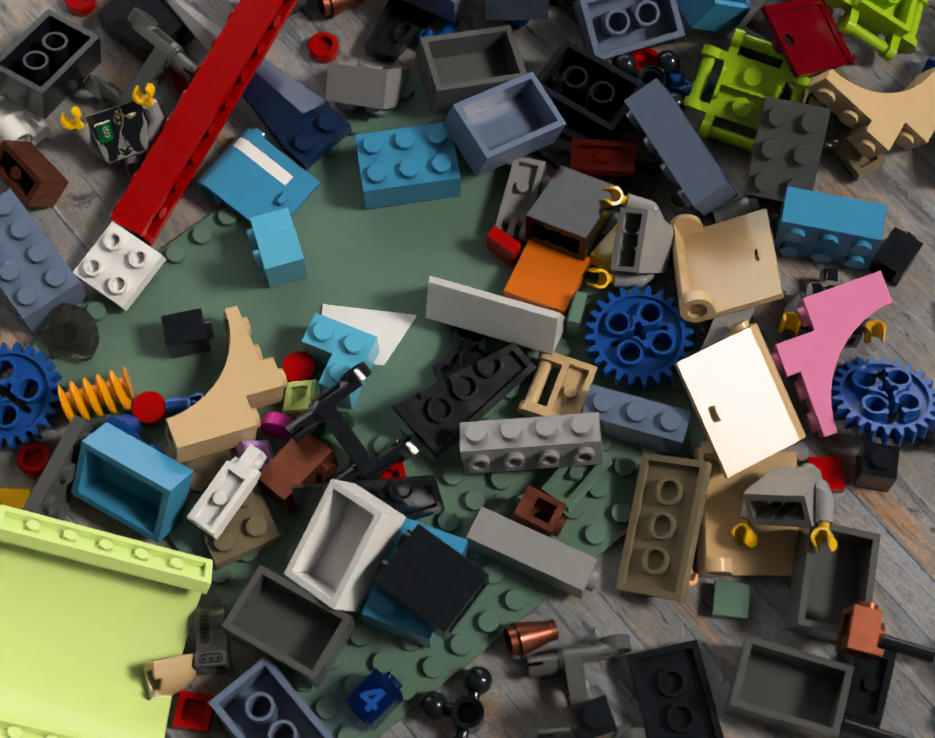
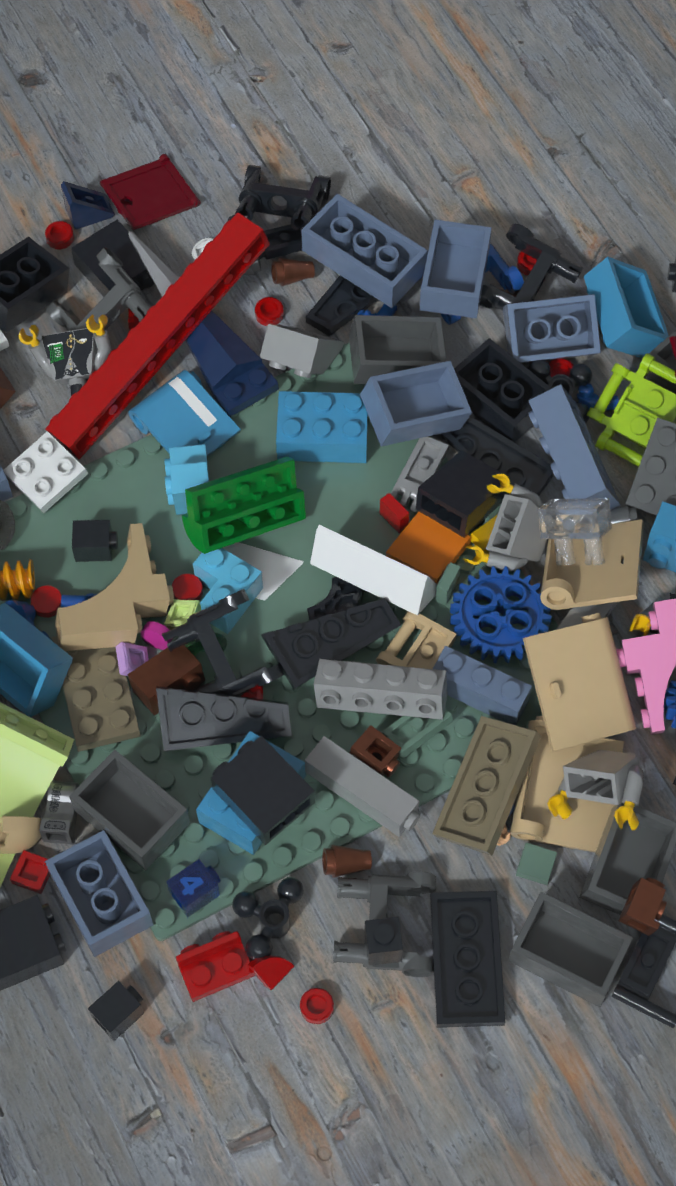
camera: 10 degrees right, 5 degrees down
(227, 492) = (99, 682): white hinge -> none
(342, 268) = (243, 505): none -> green brick
(344, 545) = (192, 745): white piece -> none
(603, 157) = (502, 449): clear red plate -> none
(702, 222) = (572, 520): none -> clear brick
(831, 471) = (653, 767): red tile -> none

